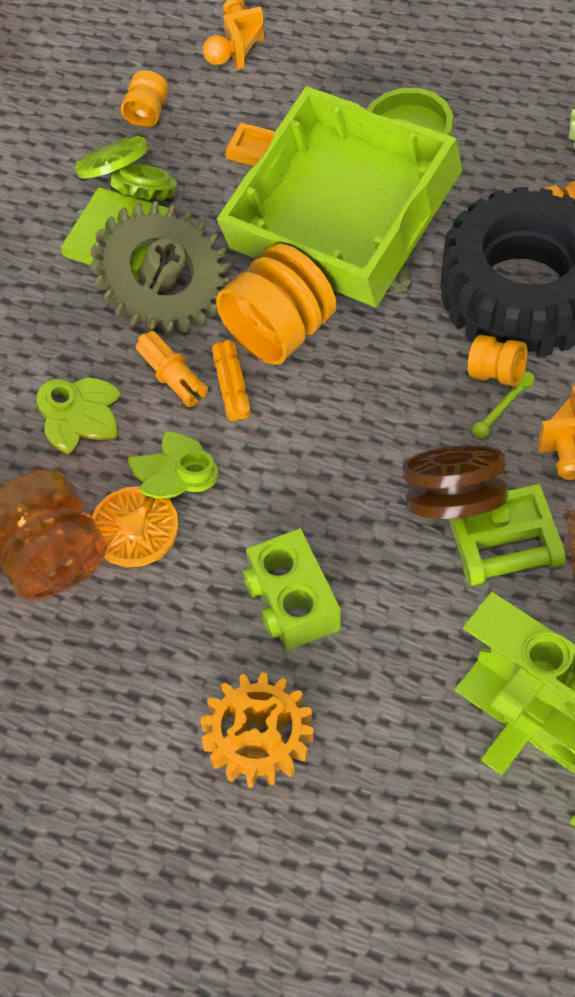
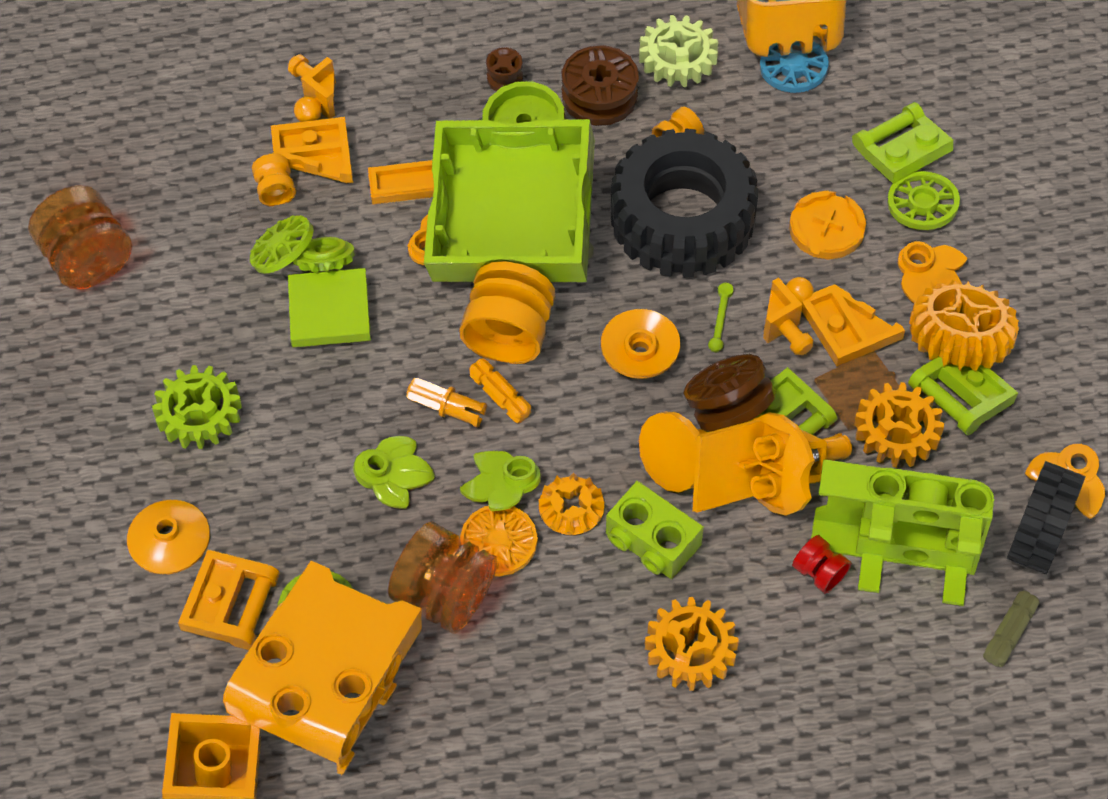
camera: 30 degrees left, 0 degrees up
(163, 234) = (398, 306): olive gear -> none
(204, 86) = (315, 147): none -> light orange wing
(221, 541) = (575, 520): none -> light orange gear
(403, 379) = (645, 330): none -> light orange dish
(425, 557) = (746, 460): none -> light orange piece
(428, 75) = (505, 61): none -> reddish brown wheel
(452, 712) = (821, 564): none -> red wheel
(497, 360) = (701, 284): light orange wheel -> none
(512, 130) = (600, 85): none -> reddish brown wheel

